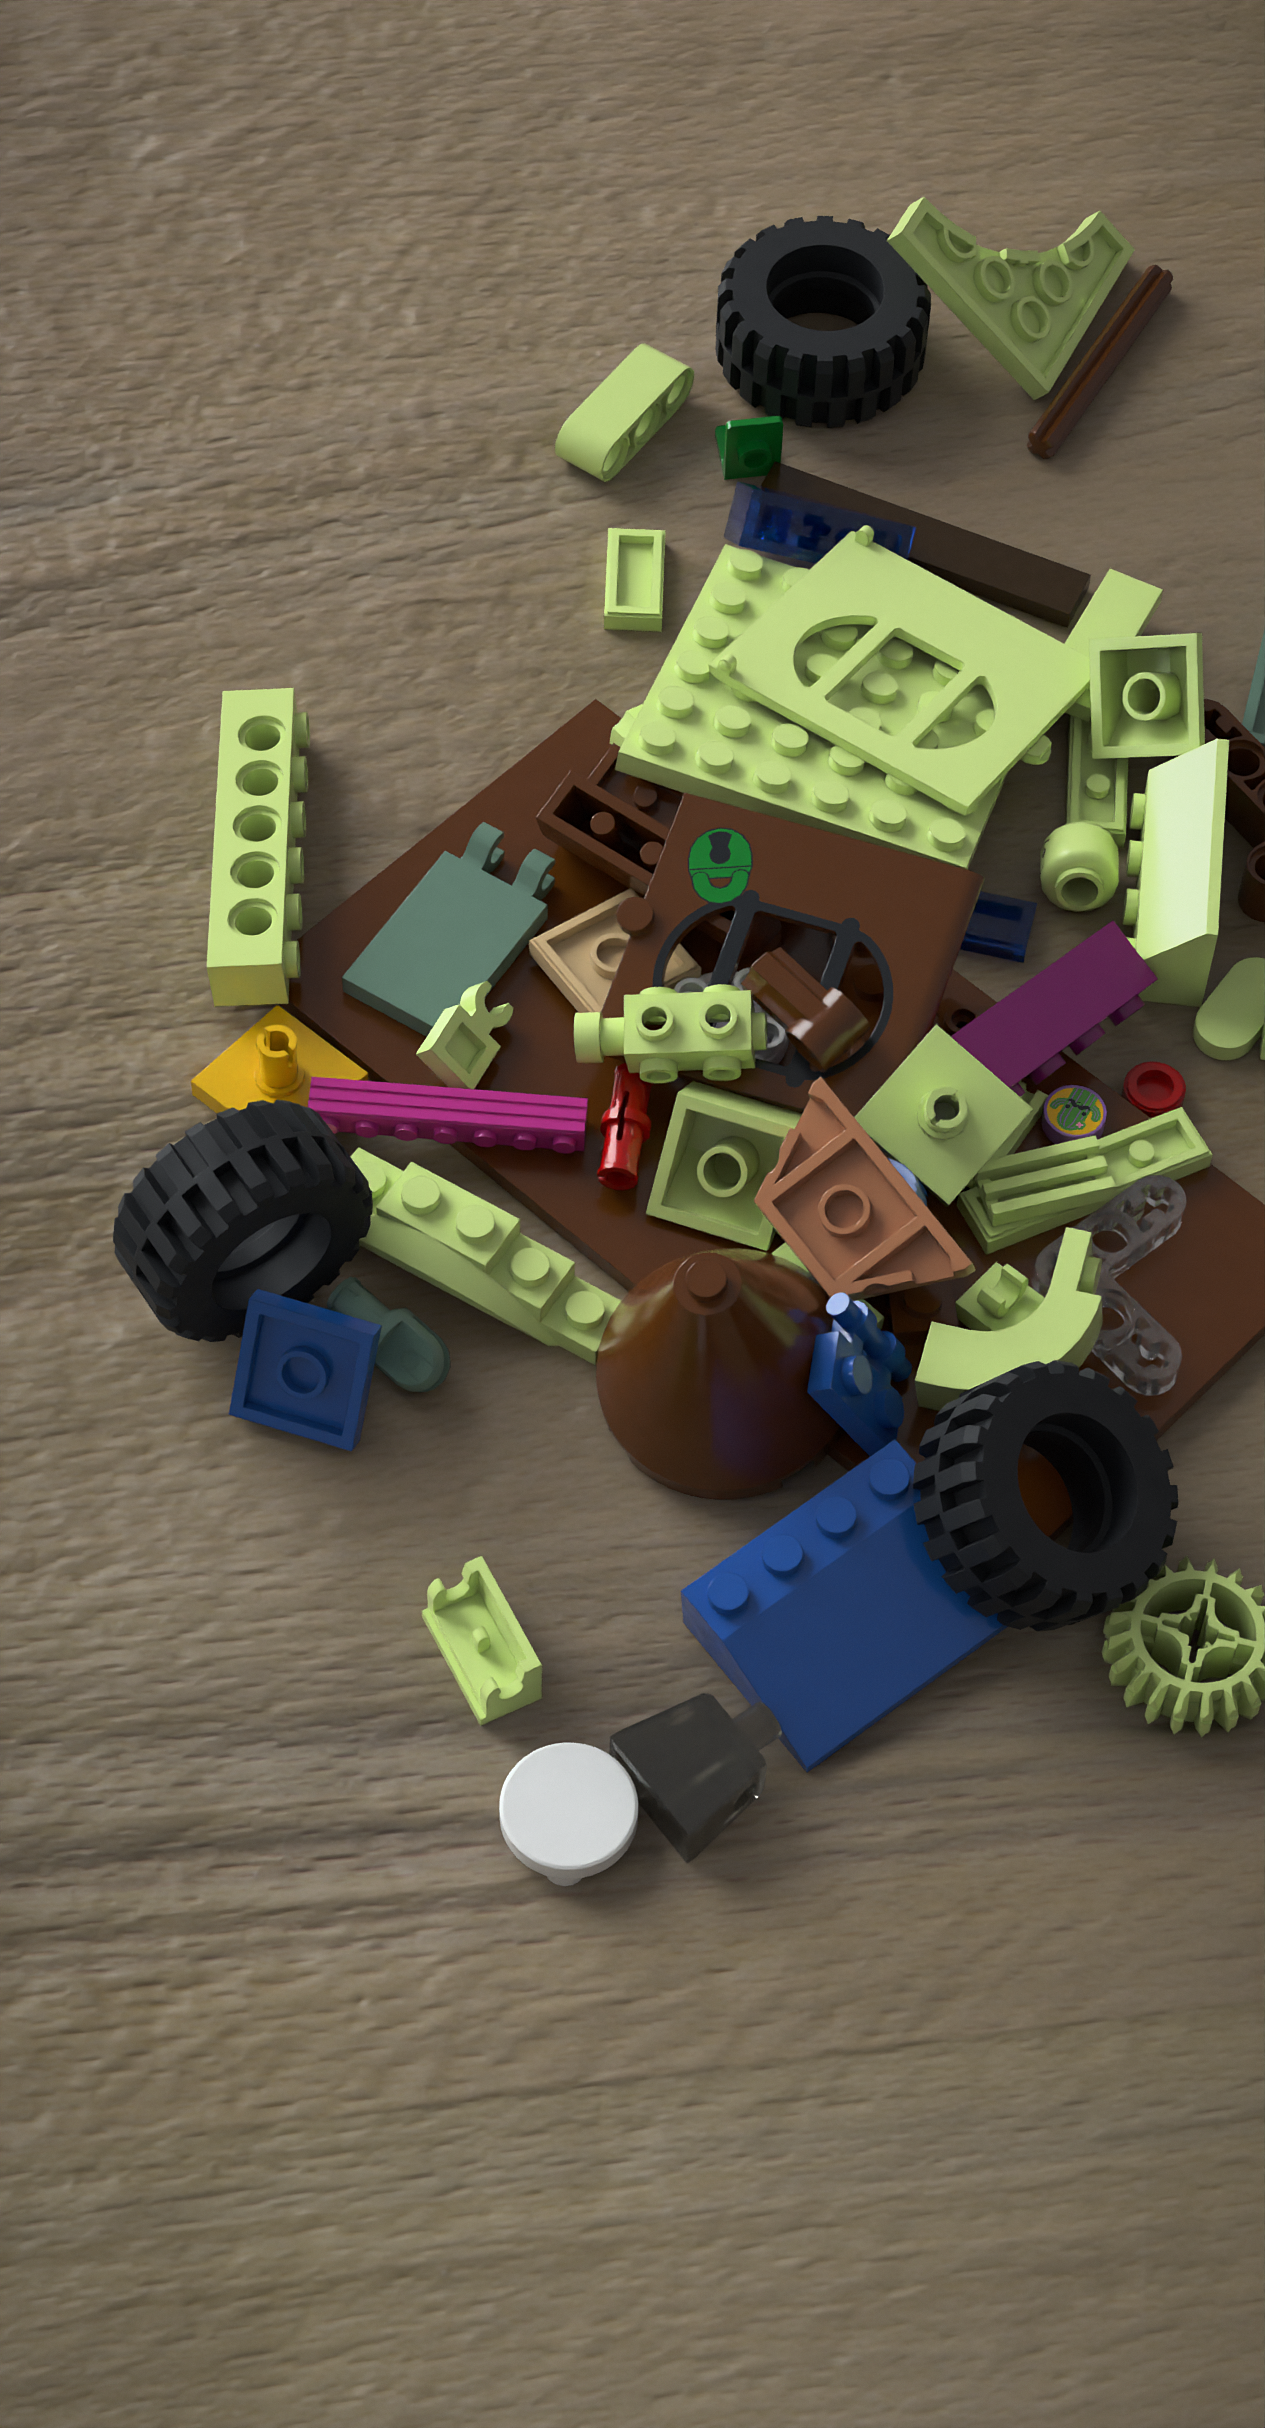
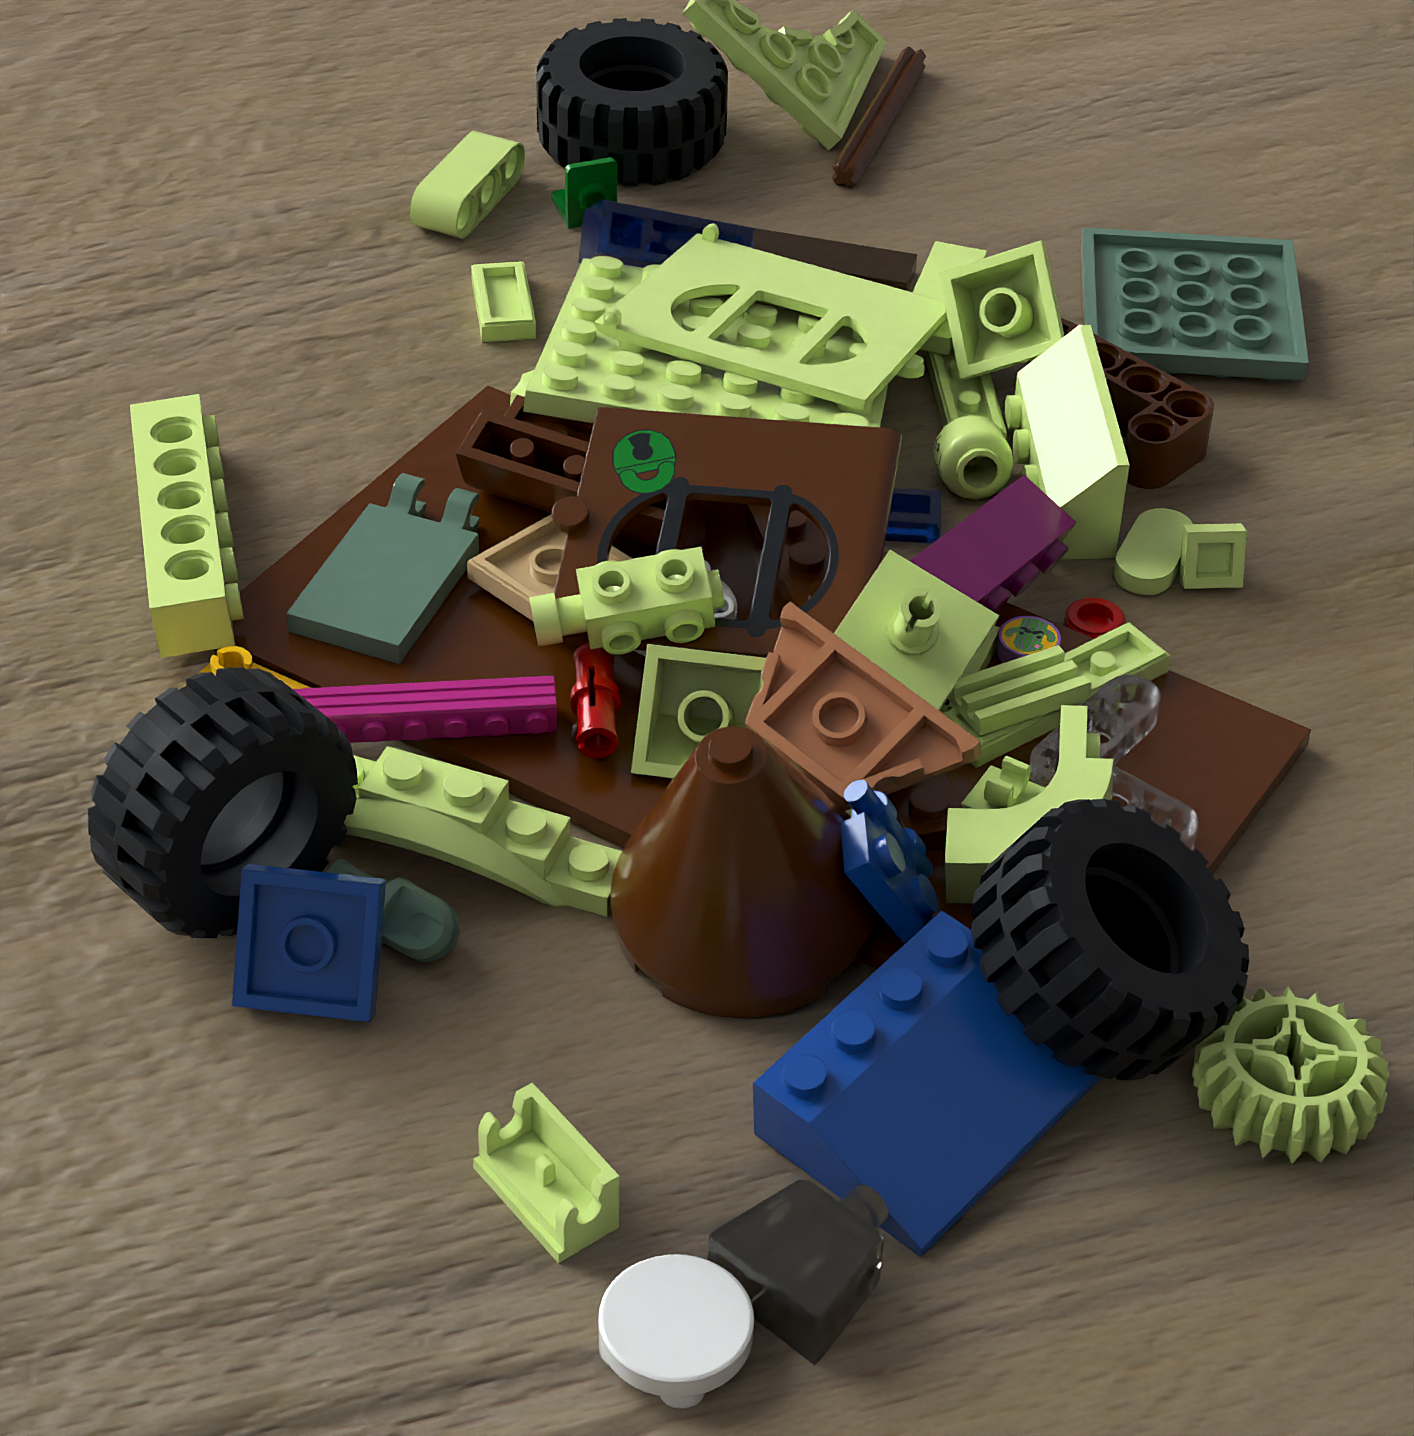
camera: 10 degrees left, 15 degrees down
(460, 1041) = (417, 645): yellowish green plate -> none
(815, 1020) = (765, 566): reddish brown piece -> none

